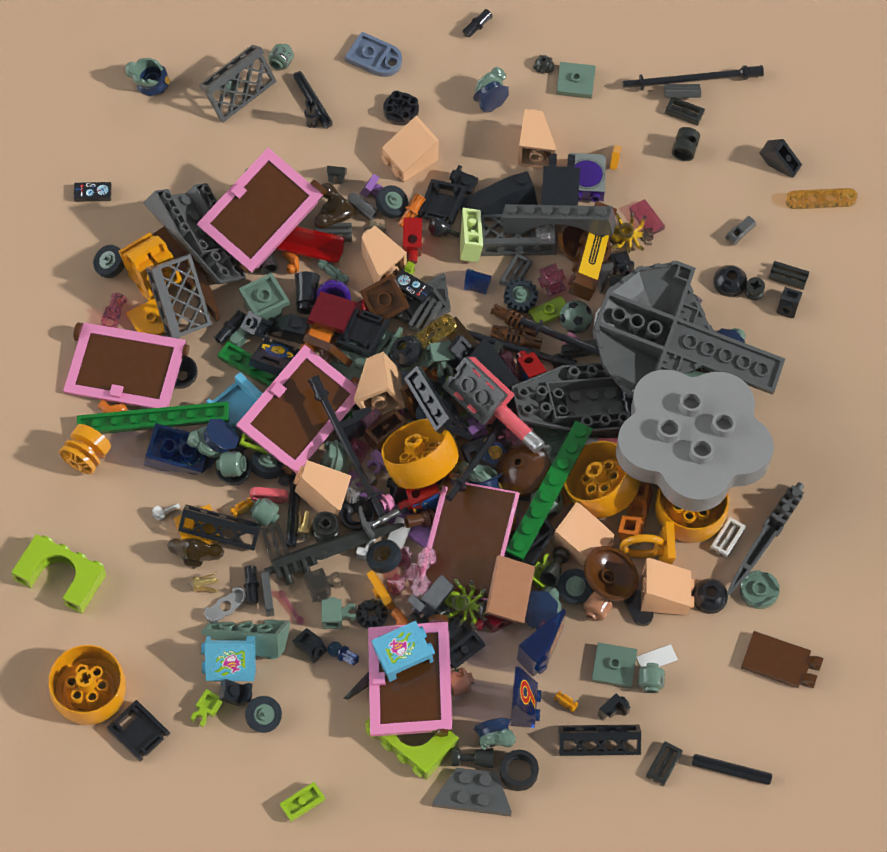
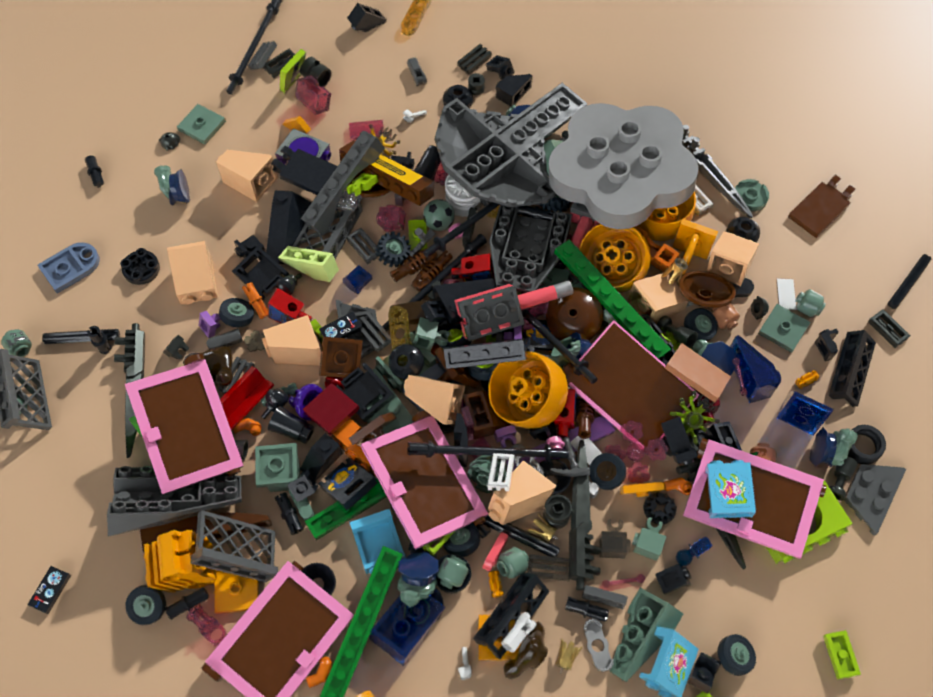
camera: 65 degrees left, 0 degrees up
(124, 289) = (186, 603): none -> black axle
(199, 532) = (521, 629): none -> white bar
(307, 149) = (134, 367): none -> pearl dark grey piece
(324, 269) = (274, 399): none -> black piece
(331, 462) = (499, 484): none -> white tile
(540, 314) = (425, 238): none -> dark grey piece
(567, 235) = (362, 182): none -> lime plate
(616, 536) = (679, 266): none -> pearl gold piece
(624, 636) = (759, 307): none -> pearl dark grey animal
(655, 153) = (312, 95): none -> clear pink brick
(670, 122) = (291, 70): none -> lime tile
(683, 248) = (409, 116): none -> white hand
(768, 324) = (513, 88): none -> black slope

